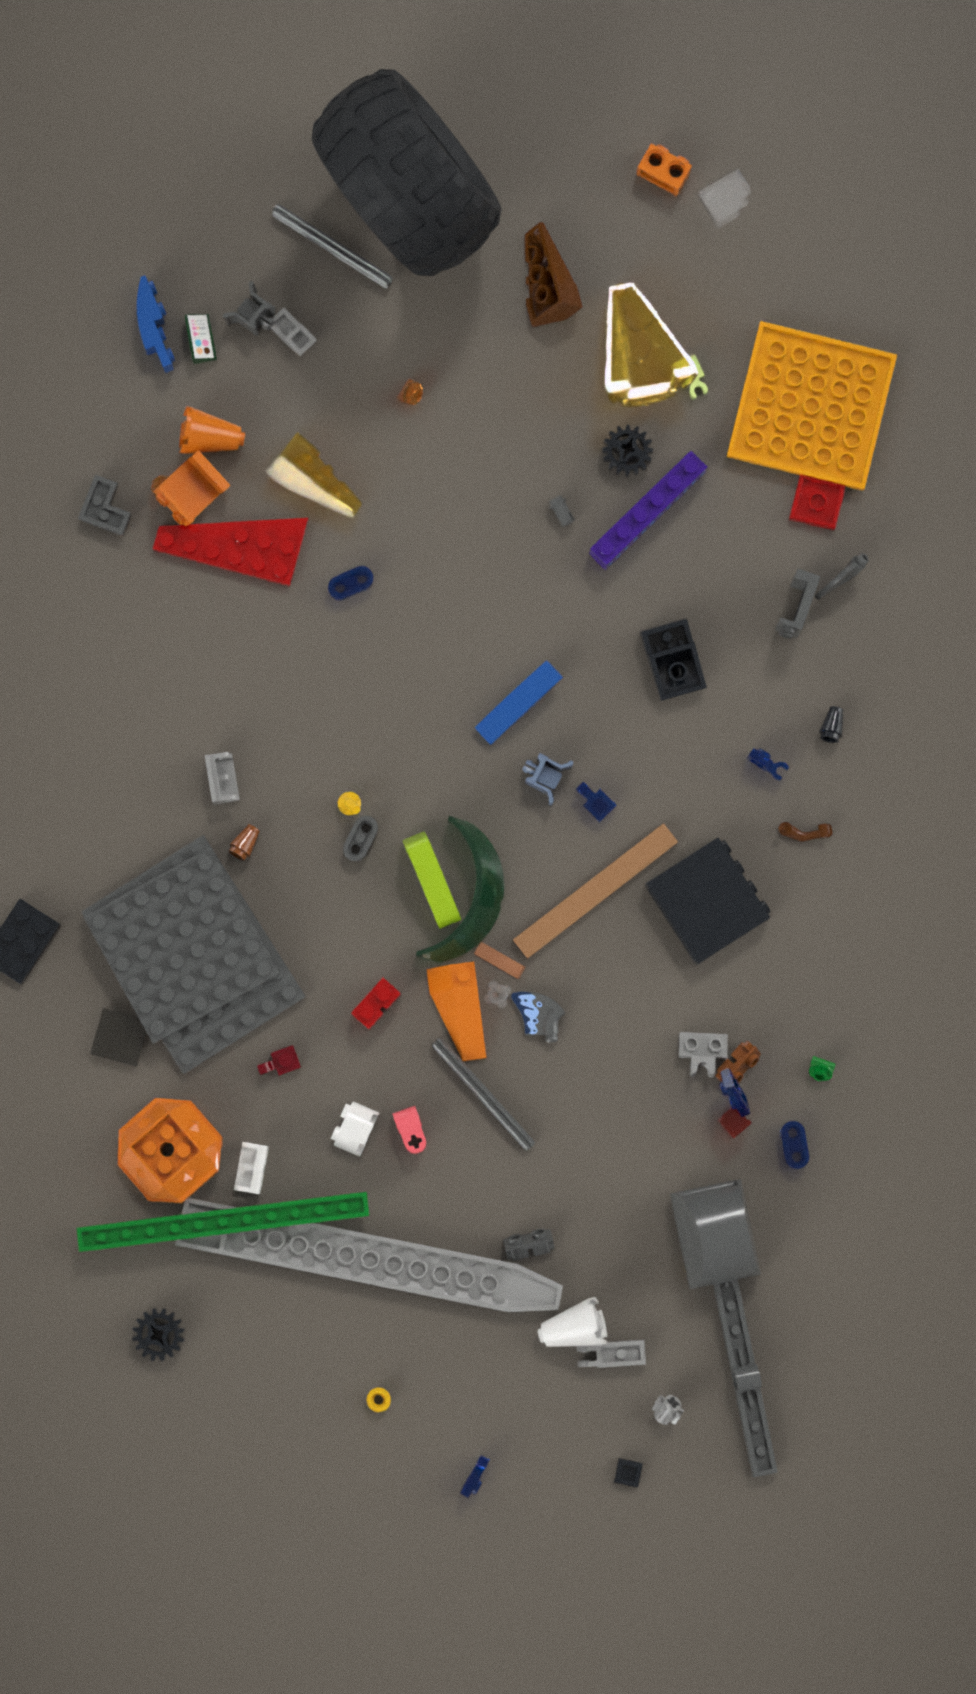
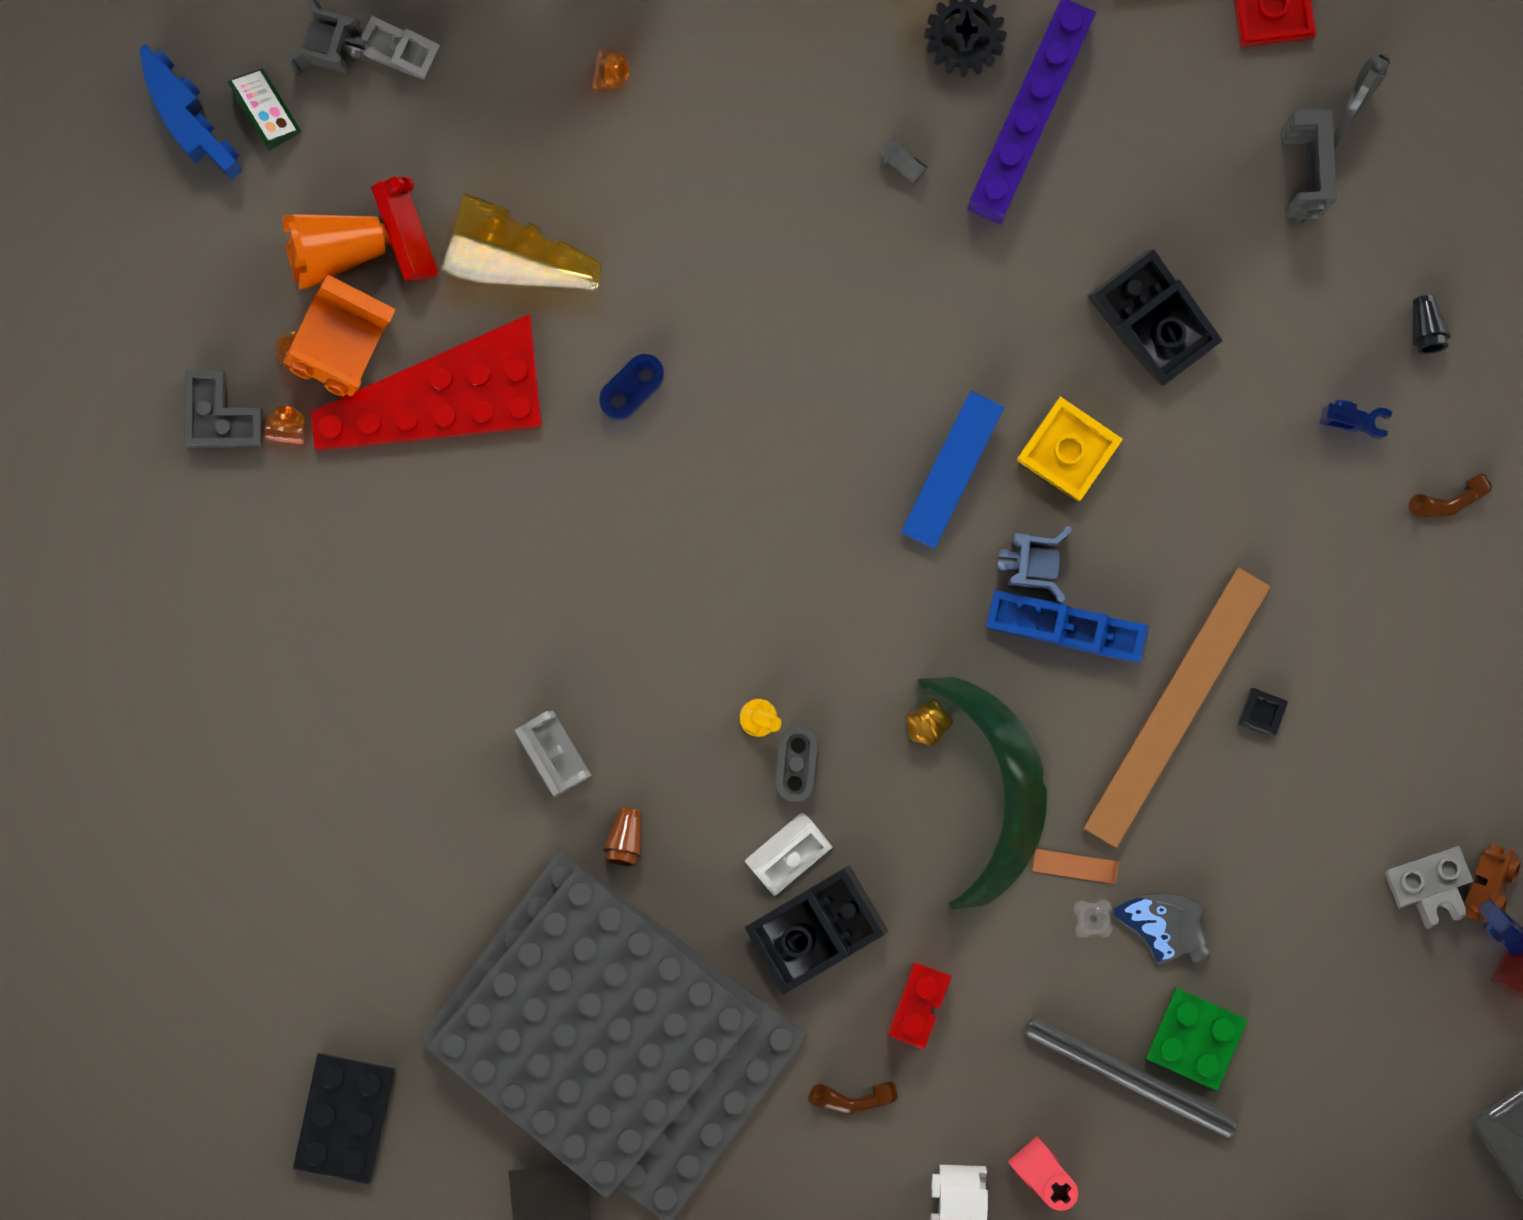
camera: 20 degrees left, 0 degrees up
(141, 529) = (285, 425): none -> clear orange plate
(254, 440) = (404, 228): none -> red hinge
(283, 1061) = (811, 1145): dark red plate -> none
(304, 1038) = (827, 1098): none -> reddish brown piece
(334, 938) = (816, 929): none -> black slope
(336, 889) = (788, 854): none -> white slope
(432, 879) = (928, 784): lime beam -> none
(446, 844) = (928, 723): none -> pearl gold arm
(457, 1000) = (1040, 955): orange wedge -> none
(529, 1086) = (1196, 1038): none -> green plate
(550, 820) = (1067, 627): none -> blue slope
(592, 717) = (1069, 449): none -> yellow plate
(597, 803) = (1128, 575): clear blue plate -> none
(644, 913) = (1262, 712): none -> black tile
(708, 900) = (1352, 658): black panel -> none

